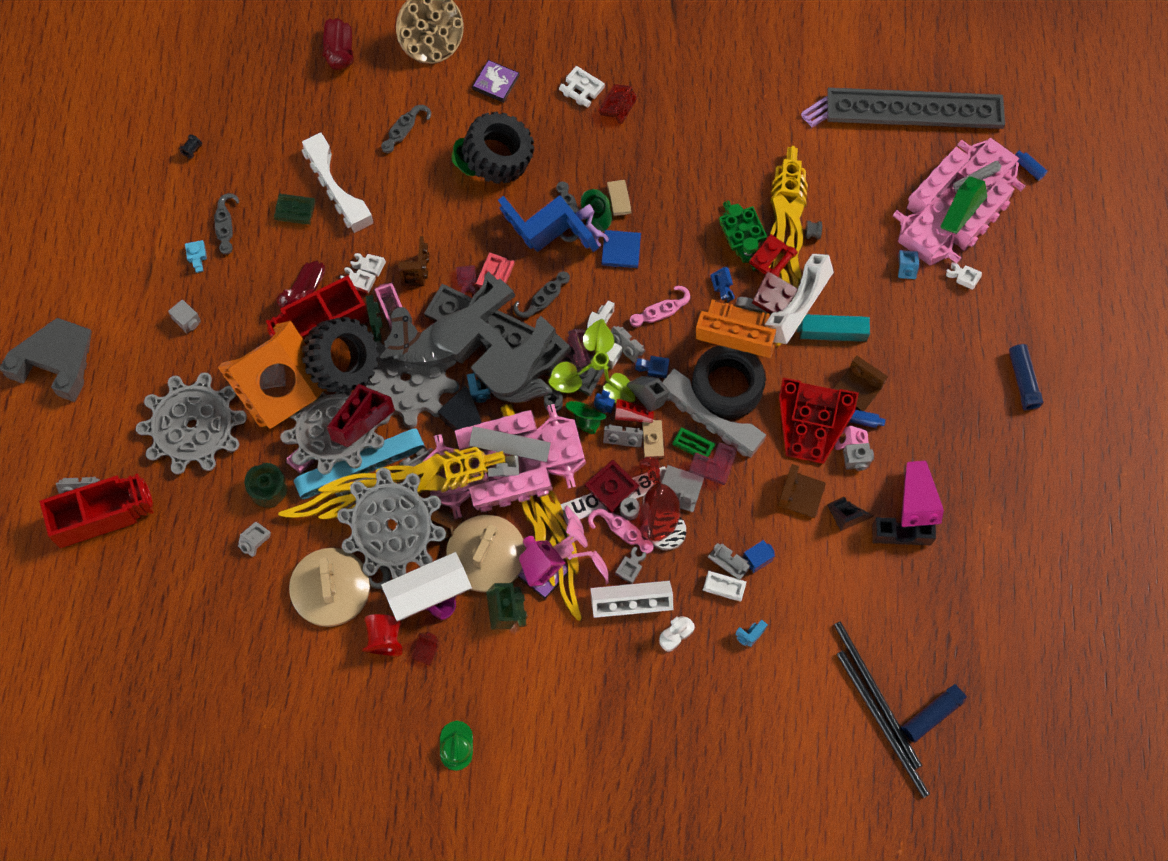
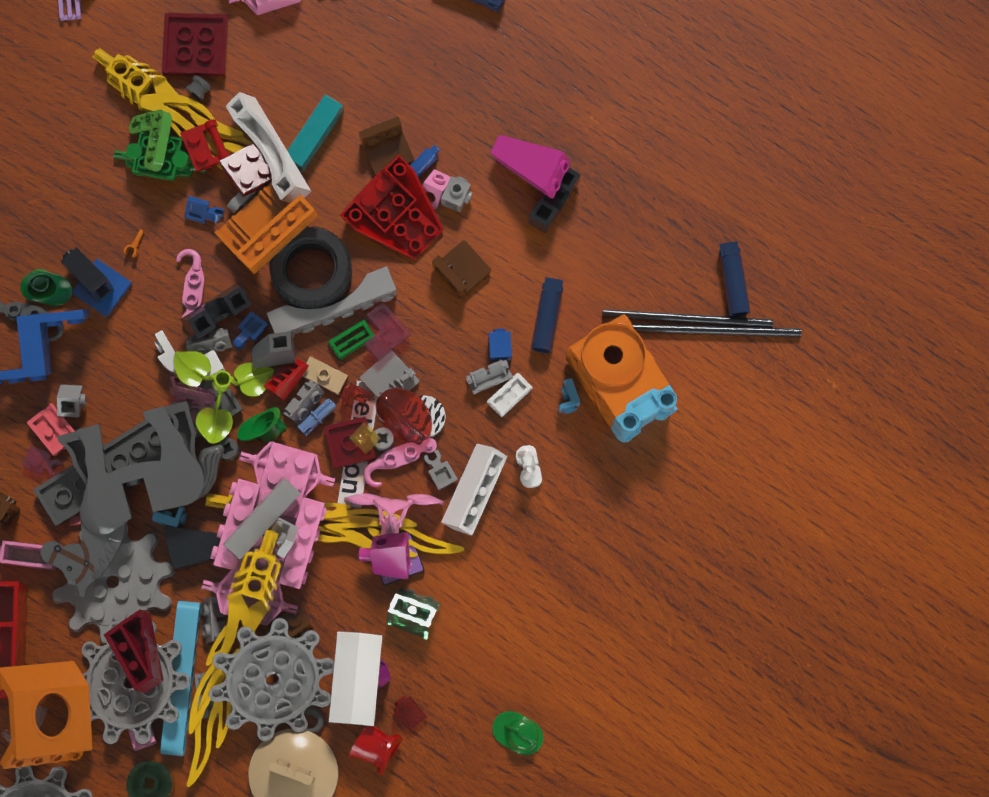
camera: 65 degrees left, 10 degrees up
(318, 354) = (42, 652): black tyre -> none
(375, 321) = (39, 580): clear green plate -> none
(487, 550) = (346, 599): tan bracket -> none
(523, 271) = (70, 400): none -> light grey brick
(544, 296) = (108, 394): dark grey piece -> none
(587, 213) = (47, 301): lavender piece -> none
(604, 402) = (260, 401): blue plate -> none
(617, 451) = (317, 416): none -> medium blue axle
(619, 197) = (42, 256): tan slope -> none
(621, 493) = (365, 438): none -> clear yellow tile
(623, 231) = (87, 274): none -> black slope
(652, 332) = (221, 306): none -> black arch
(666, 253) = (135, 243): none -> orange hand
(763, 212) = (158, 125): none -> bright green beam
(792, 662) = (621, 378): none -> orange piece
(807, 579) = (547, 315): none -> dark blue piece
(845, 210) = (195, 44): none -> dark red plate
(847, 514) = (504, 238): black slope -> none
(908, 264) = (289, 20): dark azure bracket -> none

